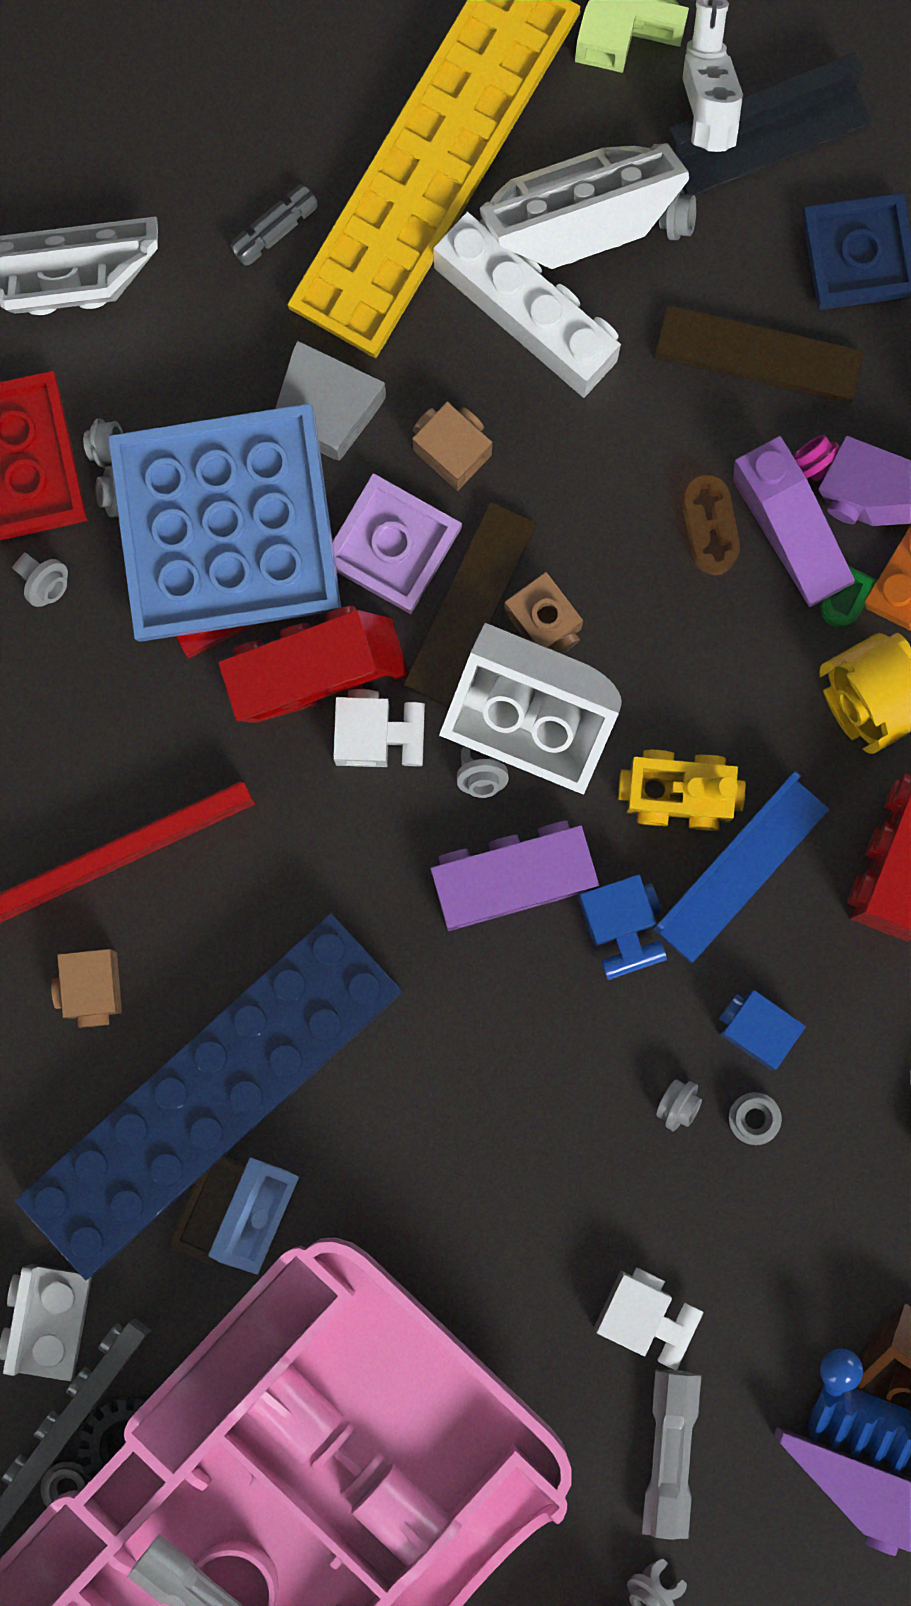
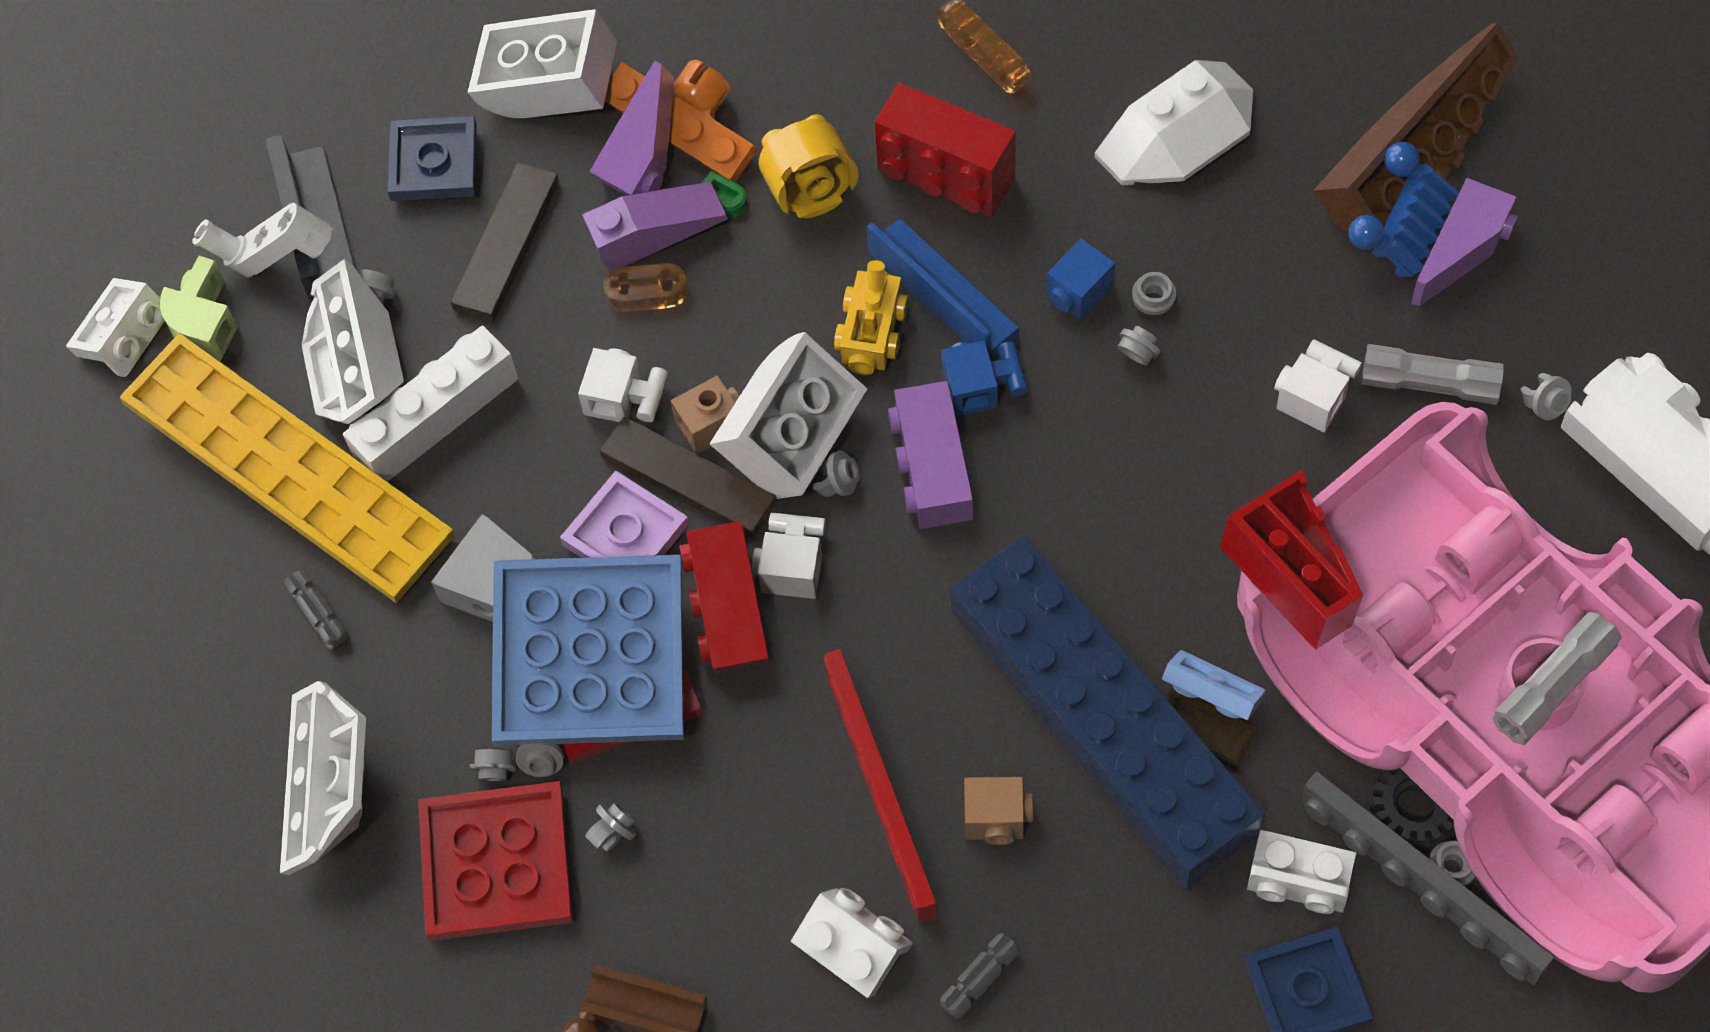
camera: 80 degrees left, 20 degrees down
(325, 1303) = (1293, 560): none -> red wedge
(452, 443) = (544, 475): medium nougat brick -> none
(572, 505) = (615, 383): none -> white brick
(816, 457) = (599, 194): dark pink plate -> none

